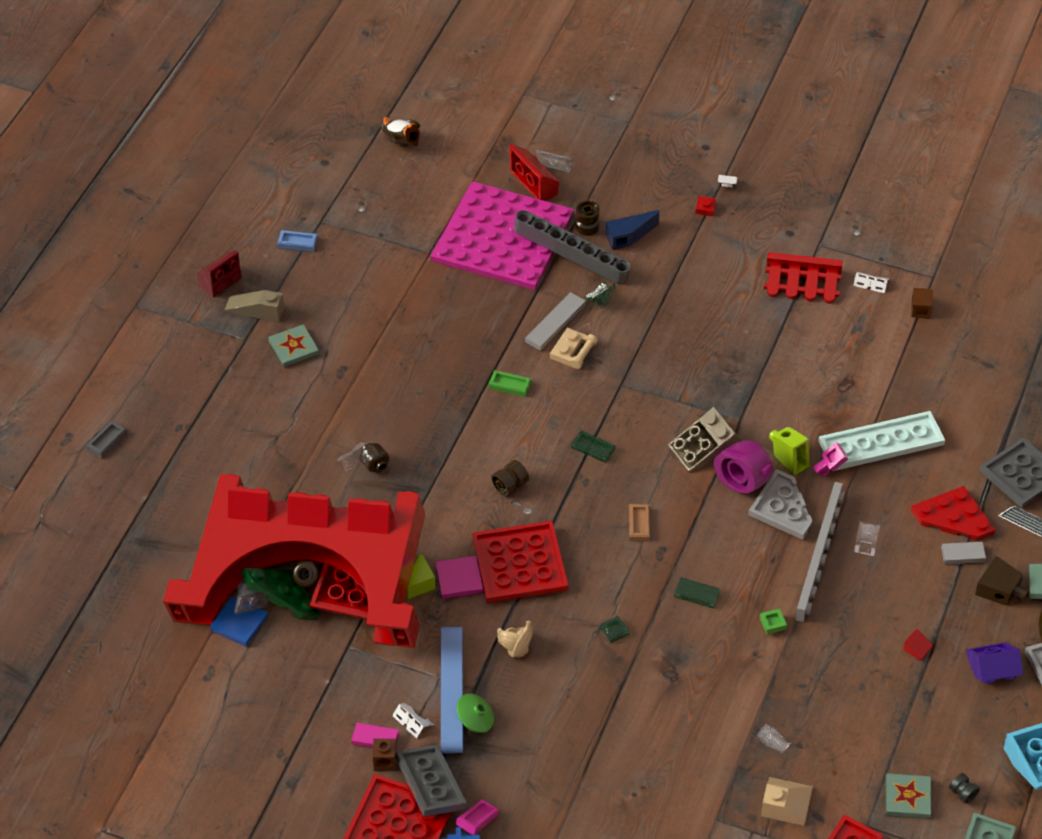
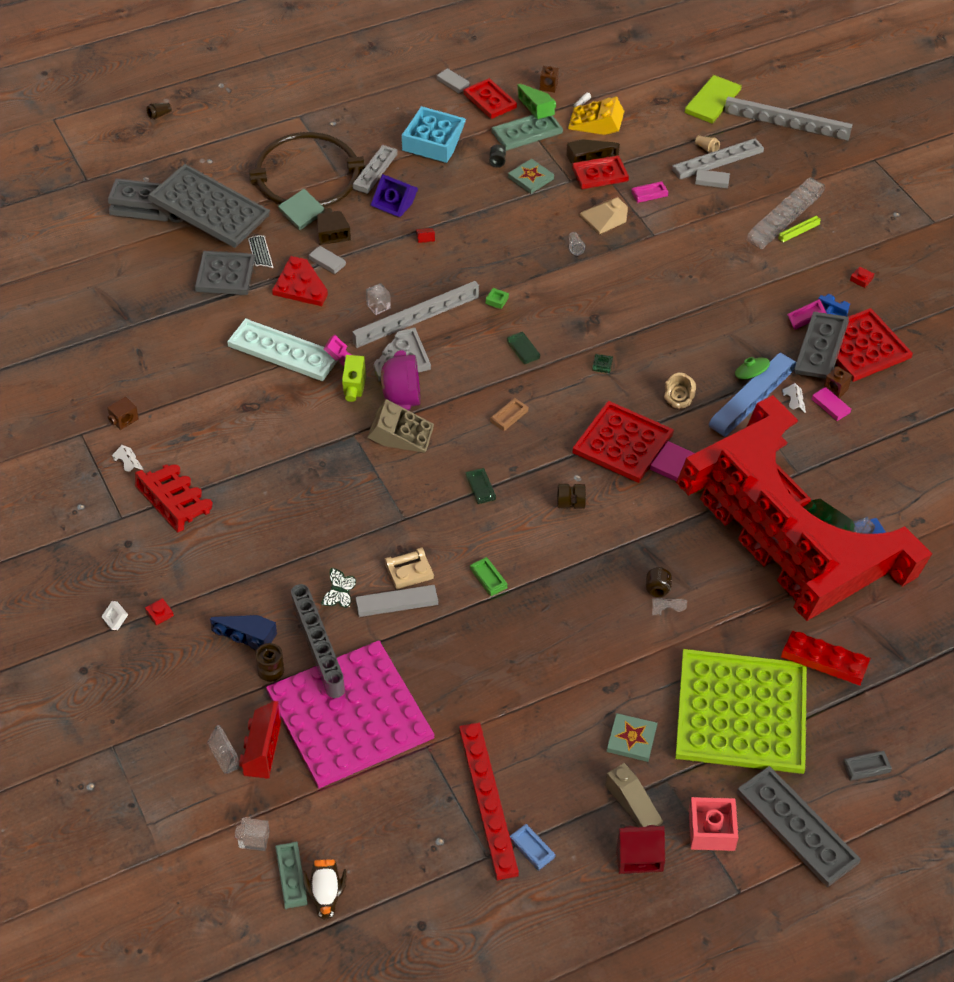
camera: 140 degrees left, 0 degrees up
(126, 363) = (798, 826): none -> dark grey plate
(184, 318) = (713, 824): none -> coral brick
(188, 489) = (826, 657): none -> red plate
(229, 412) = (742, 711): none -> lime plate
(355, 247) = (488, 802): none -> red plate
(436, 134) = (291, 875): none -> sand green tile
(478, 131) = (252, 834): none -> clear brick

